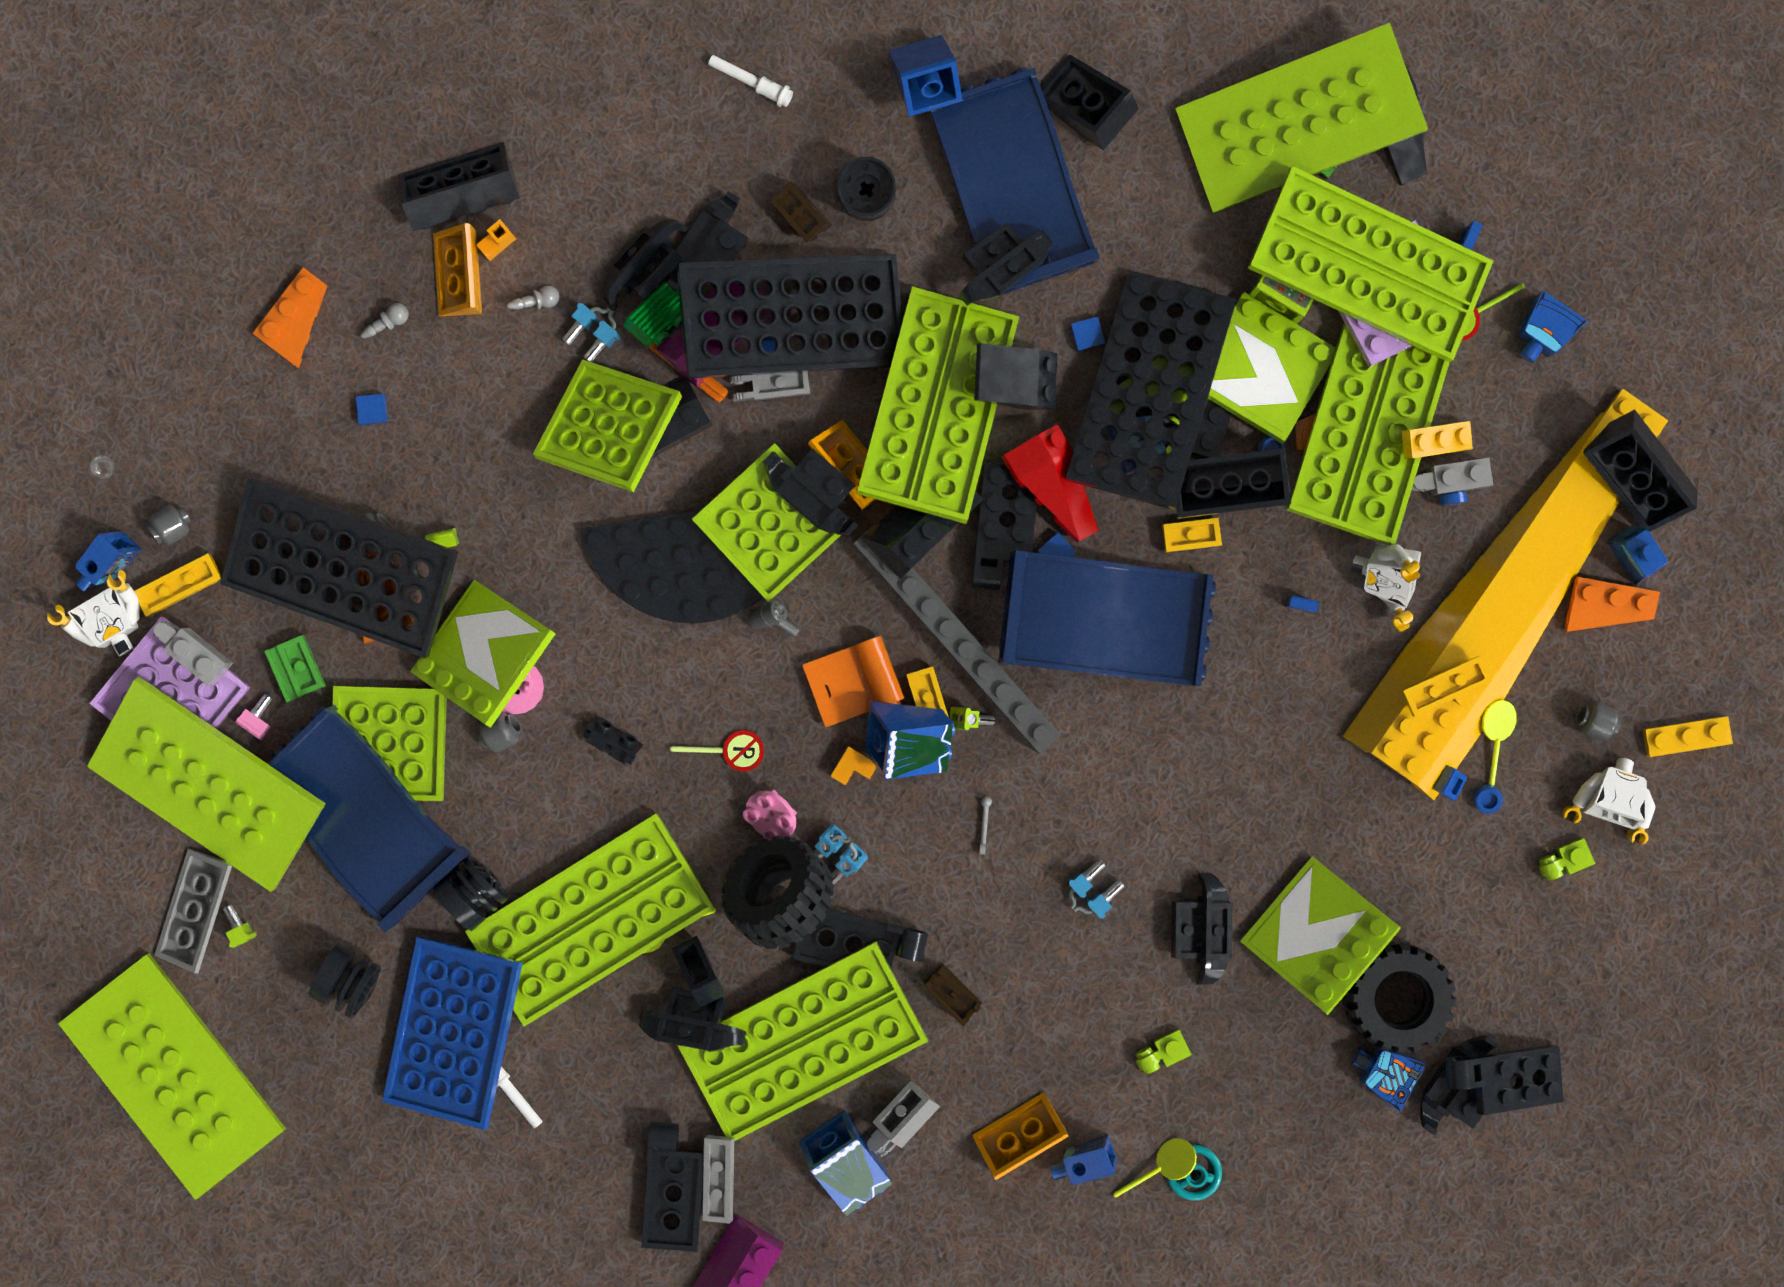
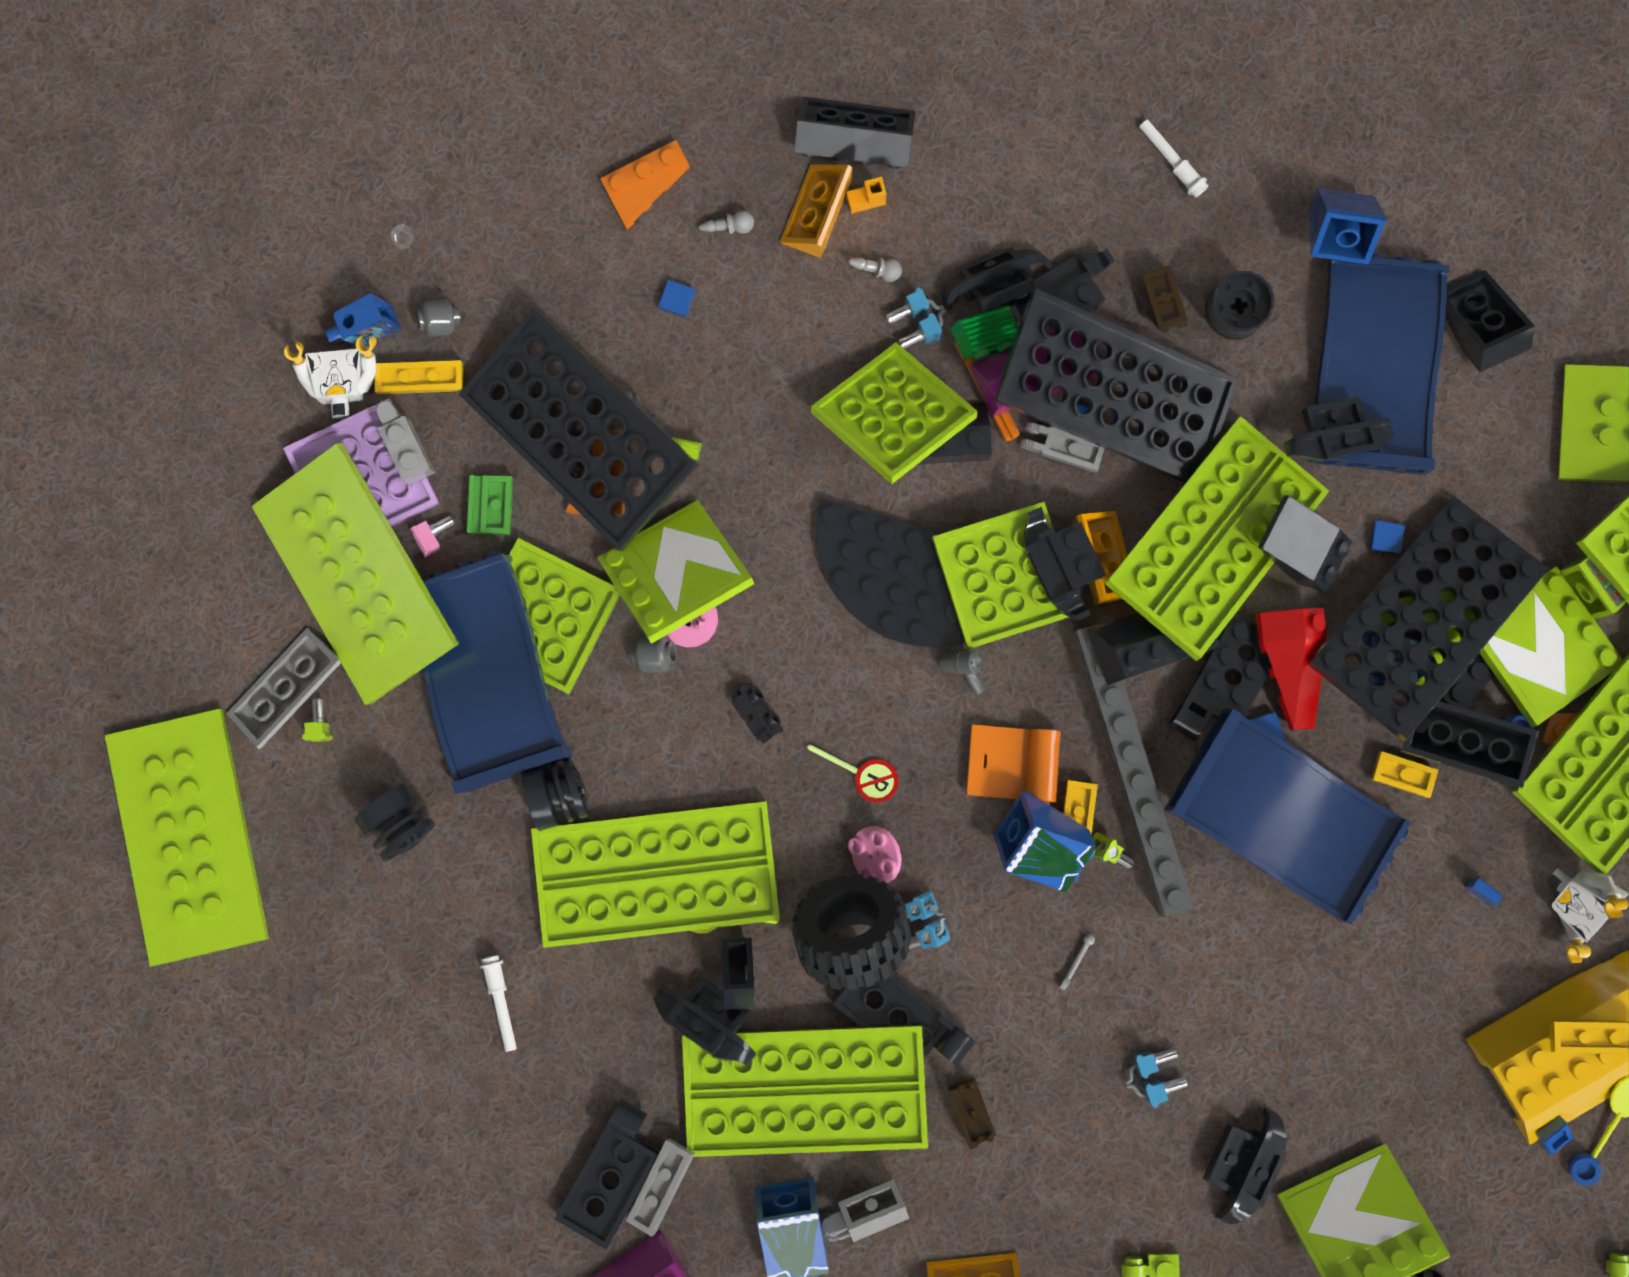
camera: 30 degrees right, 5 degrees down
(452, 1032) = (472, 921): blue plate -> none
(852, 761) = (977, 840): light orange piece -> none

